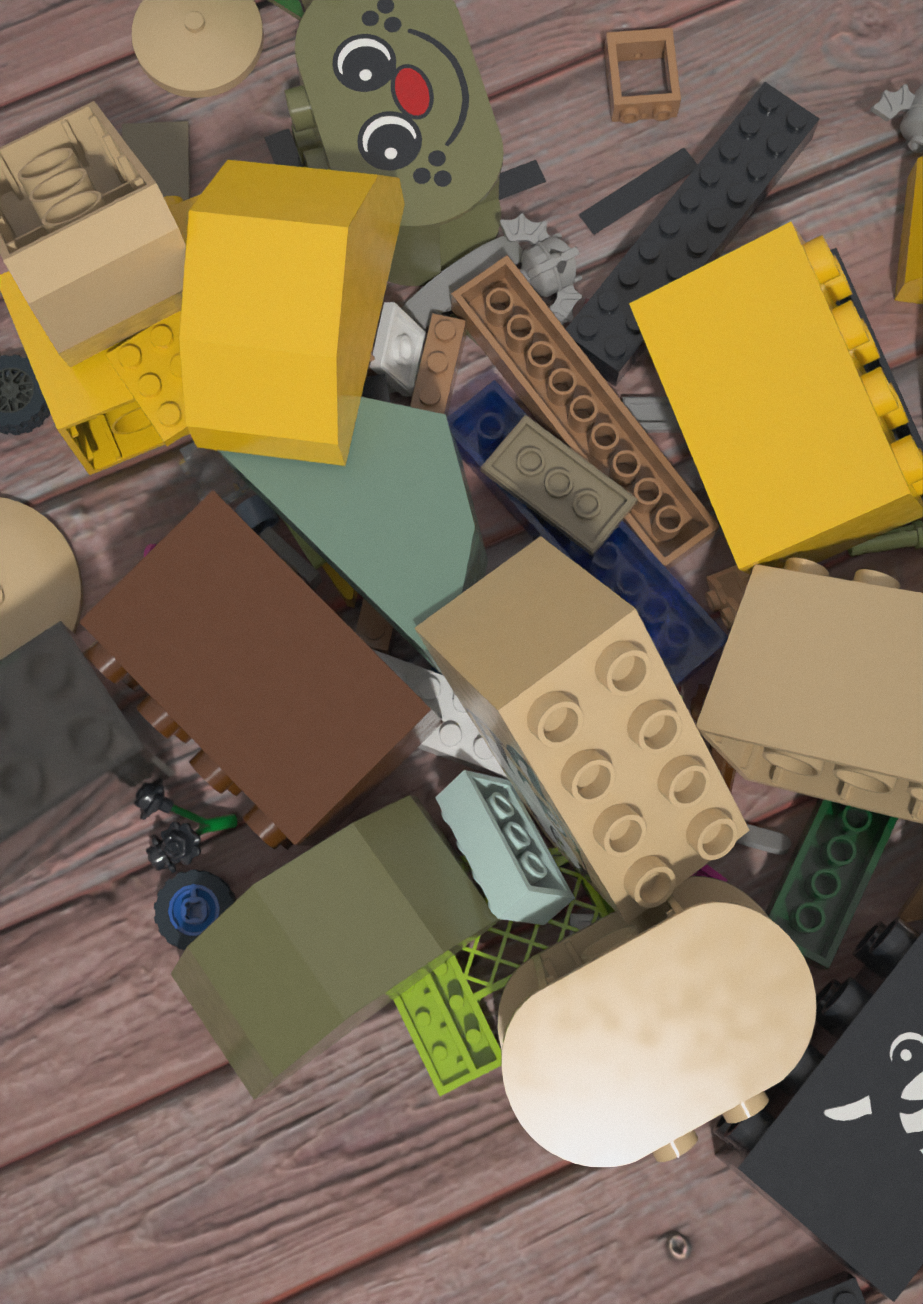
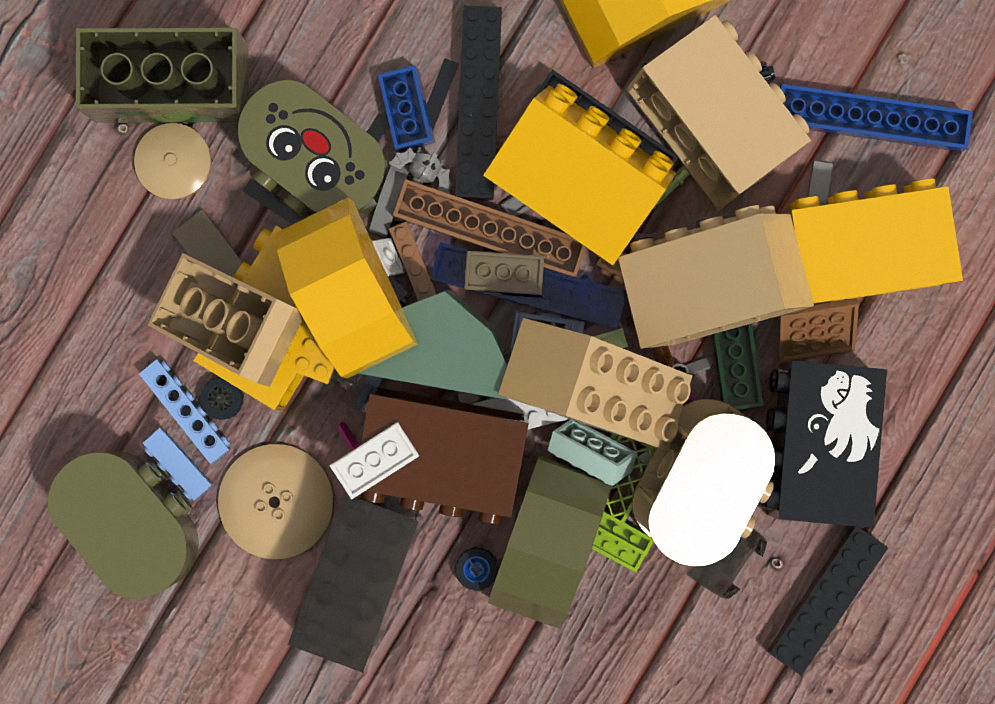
camera: 35 degrees left, 10 degrees up
(144, 598) = (374, 460): none -> white tile
(179, 840) = (451, 547): black plant -> none
(292, 558) = (404, 386): light grey tile -> none
(578, 1194) = (719, 575): none -> clear smoke piece
(581, 169) = (406, 108): none -> blue brick
(641, 46) = (387, 24): medium nougat window -> none

